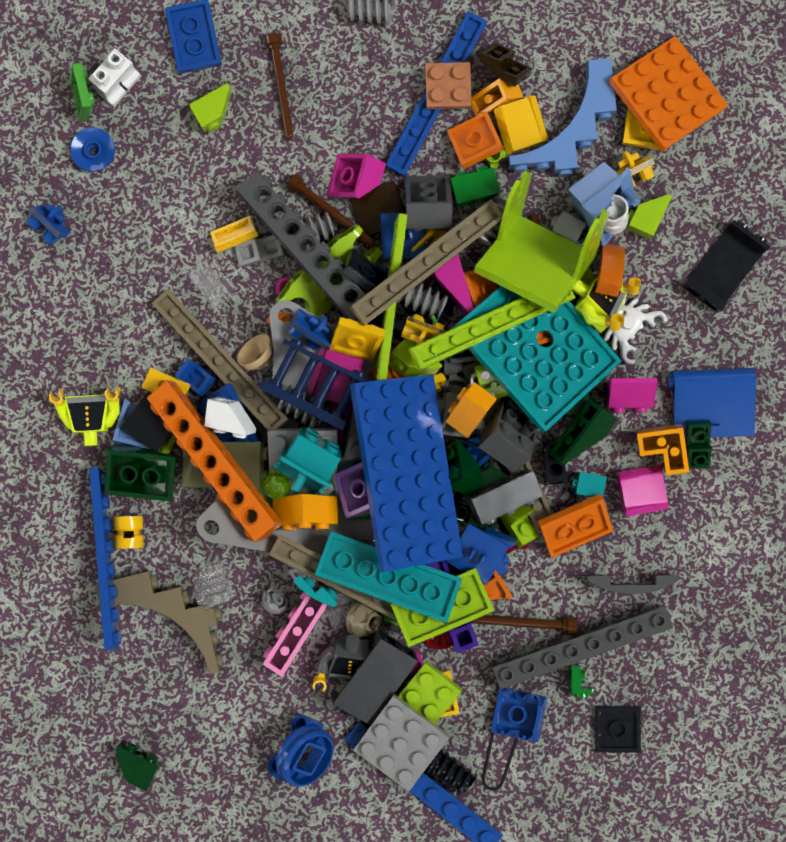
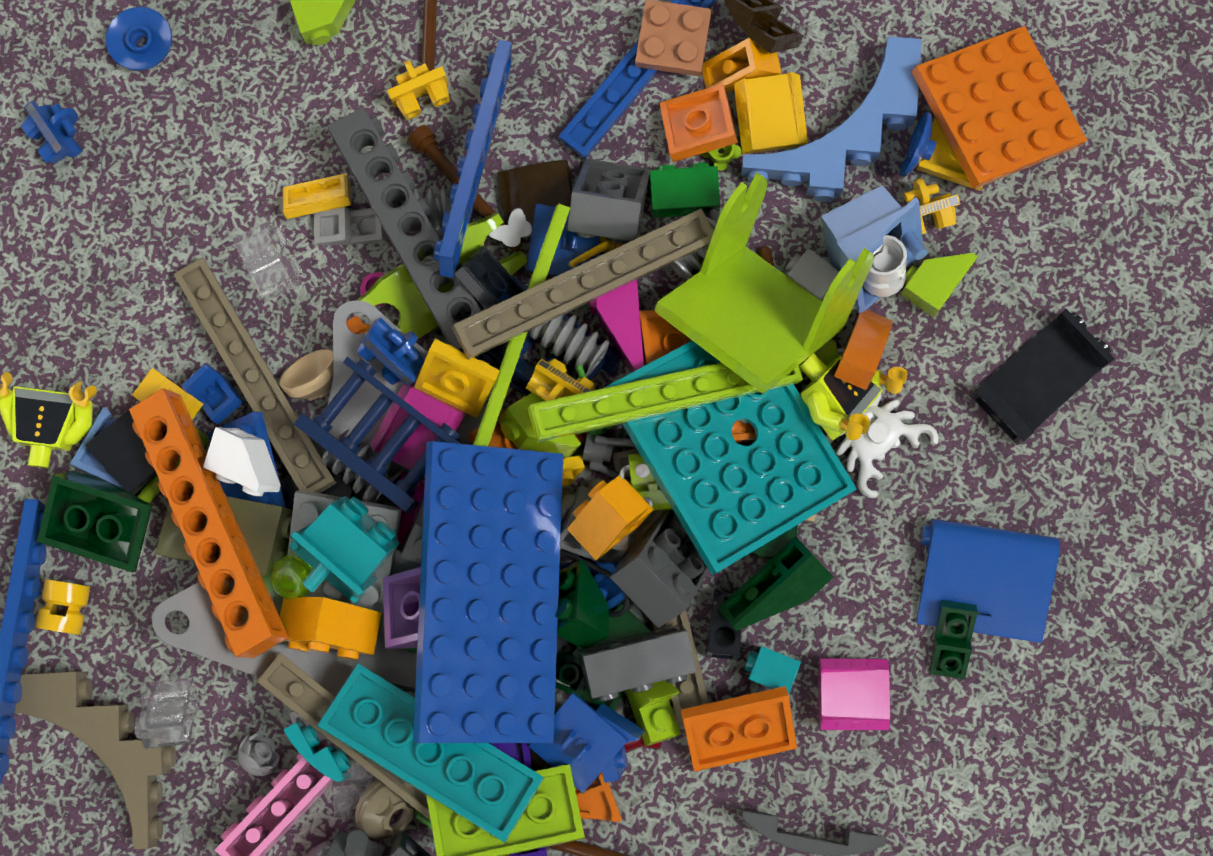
camera: 20 degrees right, 5 degrees down
(295, 144) = (416, 83): none -> yellow hips
(335, 218) = (471, 167): none -> blue plate
(355, 175) = (519, 142): dark pink slope -> none
(371, 231) = (516, 228): none -> white sticker
(621, 129) = (920, 145): none -> blue dish
(630, 394) = (861, 542): dark pink slope -> none
(665, 440) = (908, 626): light orange brick -> none

